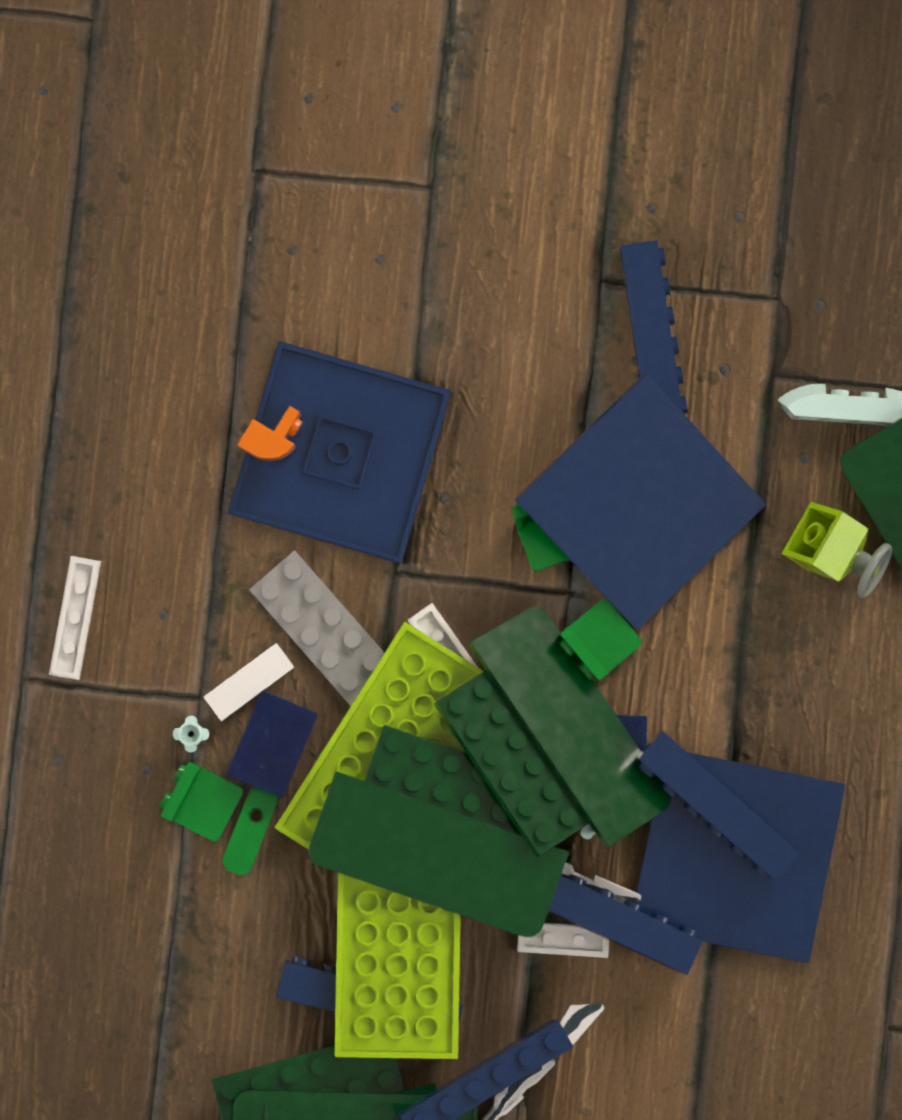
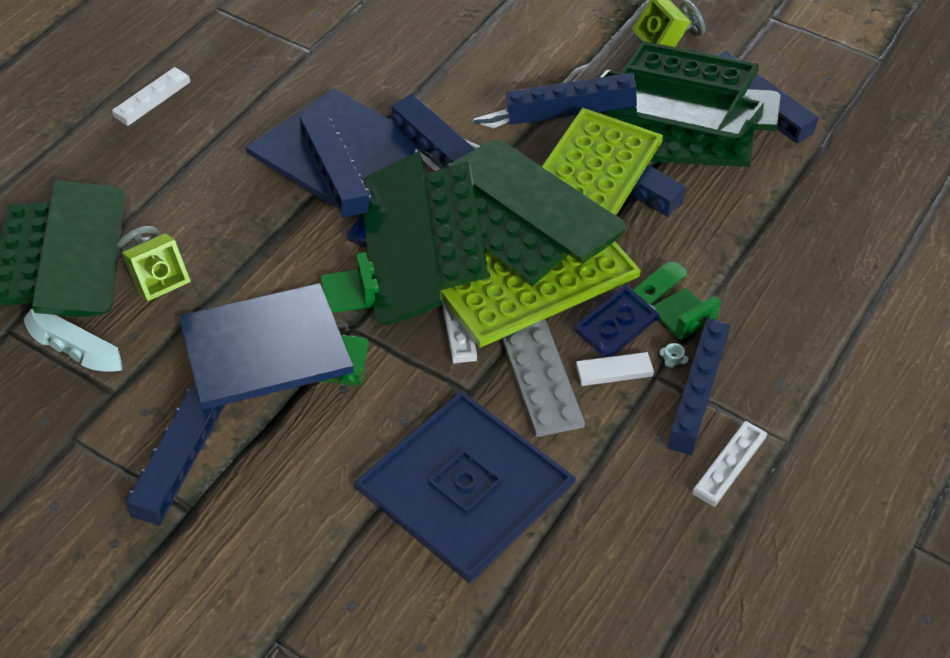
camera: 155 degrees left, 35 degrees down
(144, 698) = (698, 387): none -> dark blue brick
(270, 444) = (513, 498): orange brick -> none

